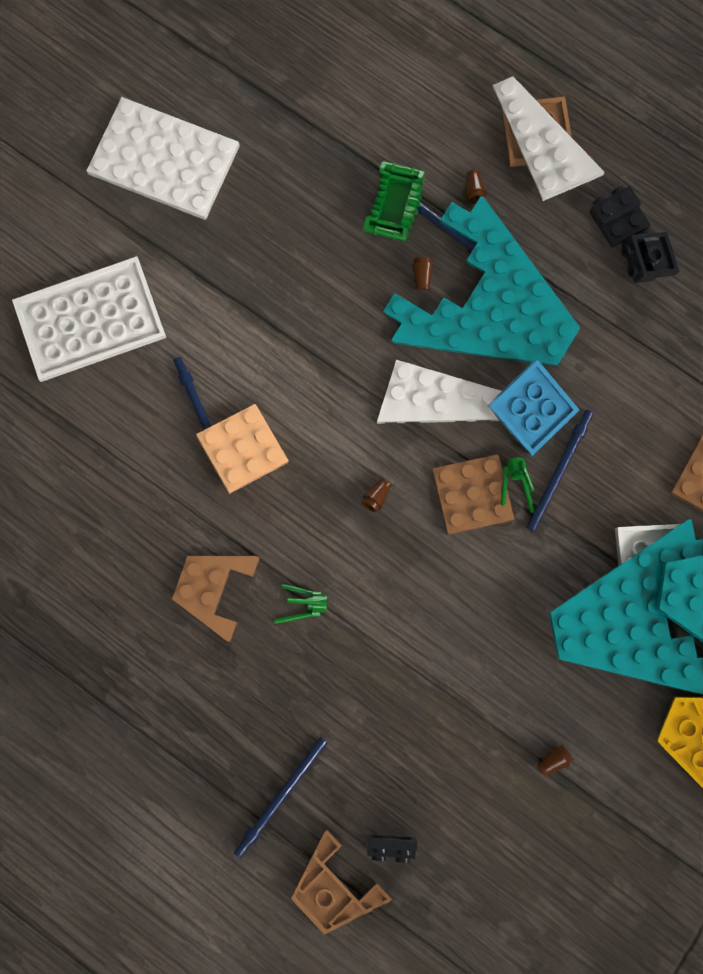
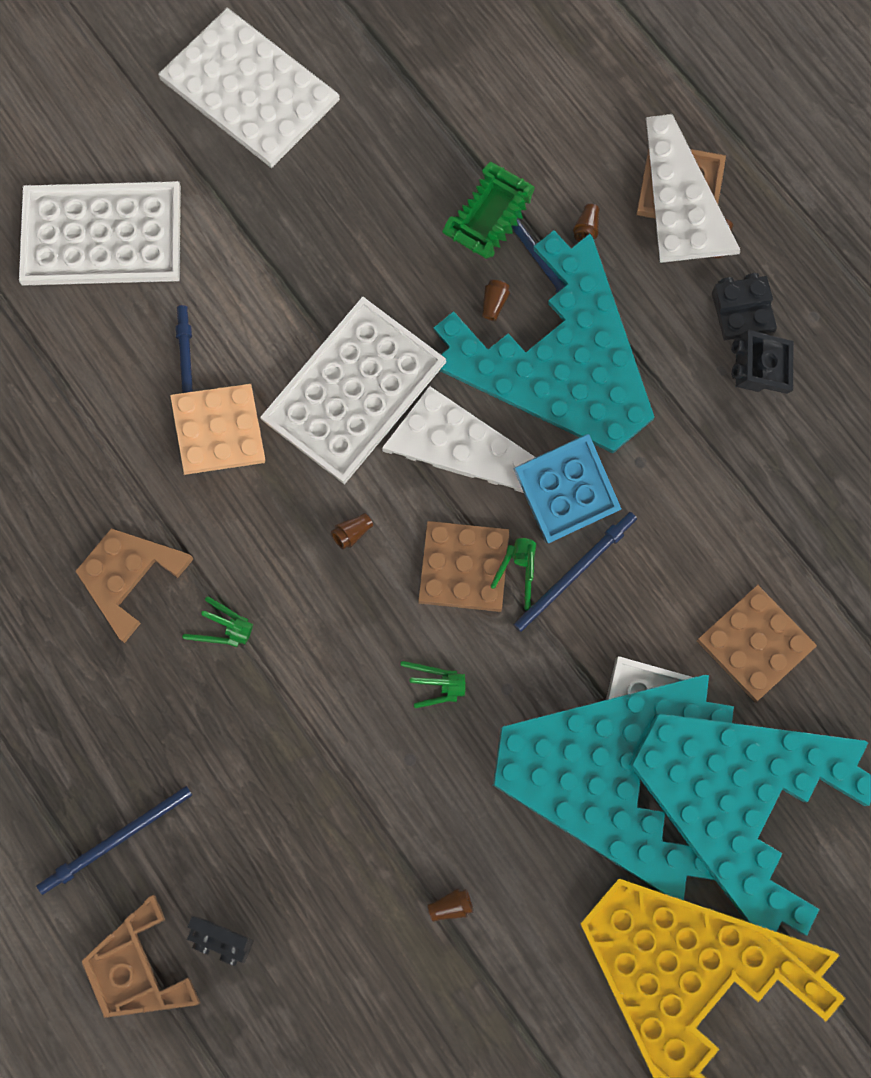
camera: 15 degrees right, 5 degrees down
(338, 382) = (353, 390): none -> white plate
(496, 590) = (450, 683): none -> green plant

